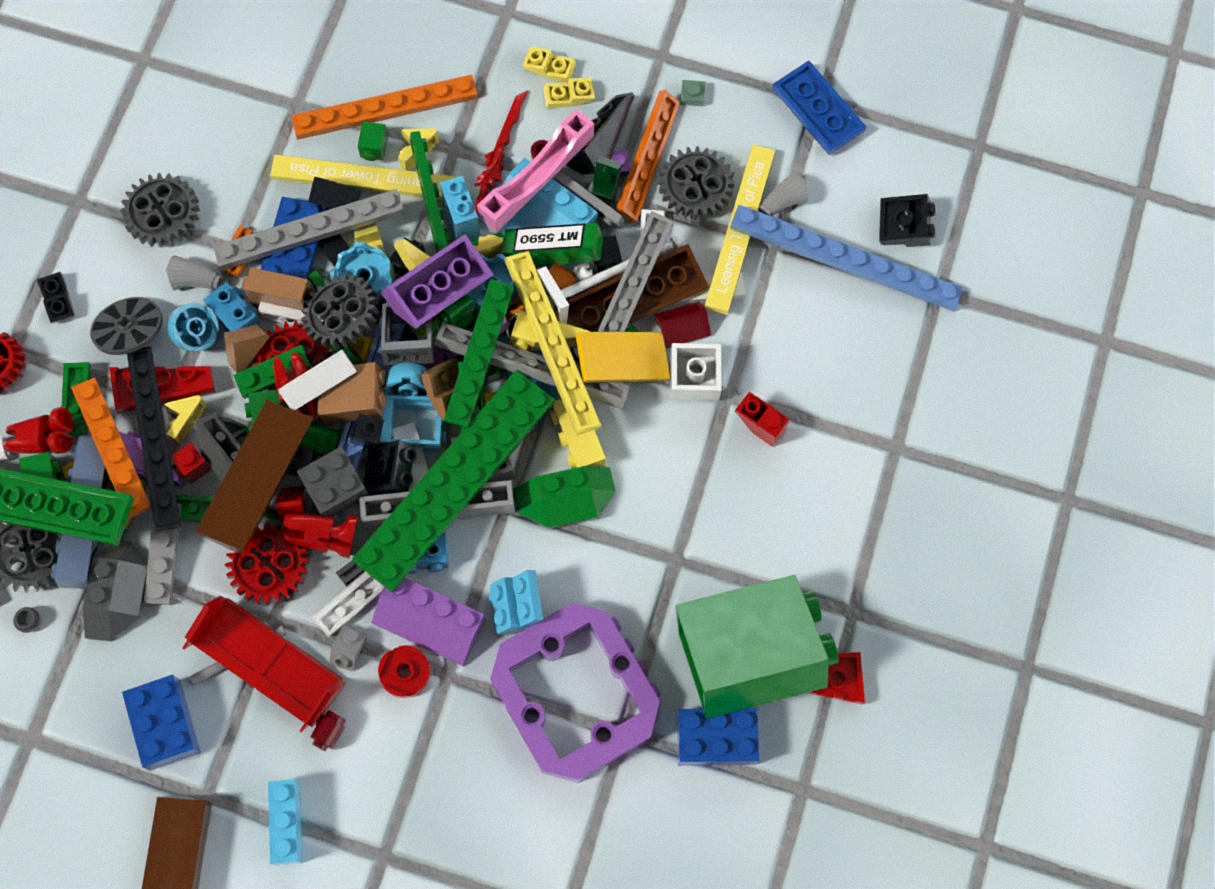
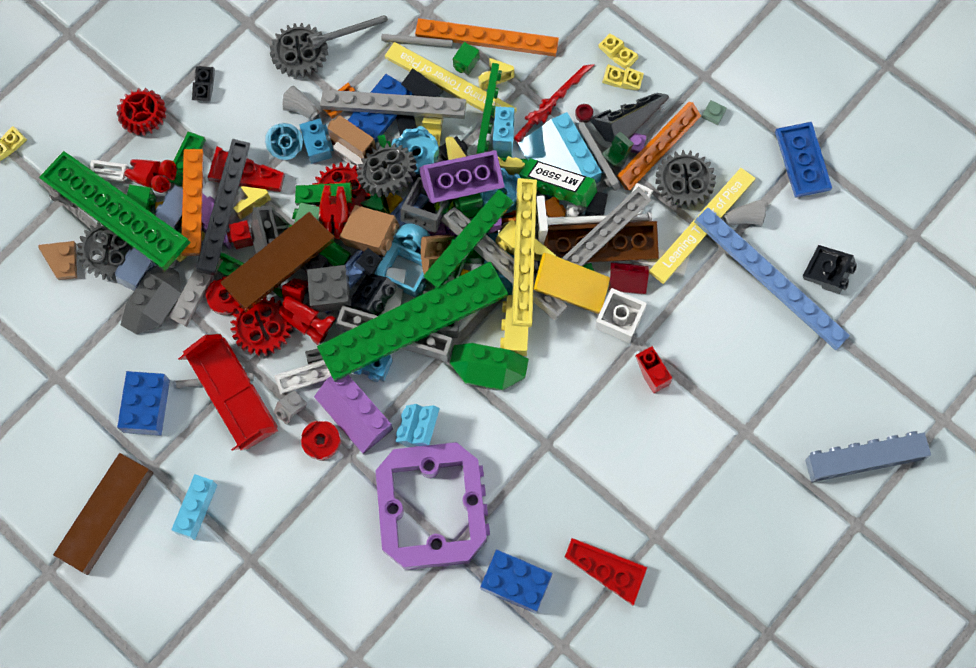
camera: 30 degrees right, 0 degrees up
(26, 619) = (88, 296): dark grey plate -> none
(126, 326) = (240, 122): dark grey piece -> none
(177, 189) = (316, 40): none -> dark grey piece
(194, 558) = (216, 302): none -> red plate
(244, 345) = (312, 167): medium nougat slope -> none
(301, 142) = (417, 40): none -> light grey bar
(317, 380) = (349, 212): white tile -> none
(328, 731) = (250, 458): dark red brick -> none
(509, 198) = (543, 136): bright pink arch -> none
(755, 645) = (570, 528): brick -> none
(1045, 417) = (867, 457): none -> sand blue brick

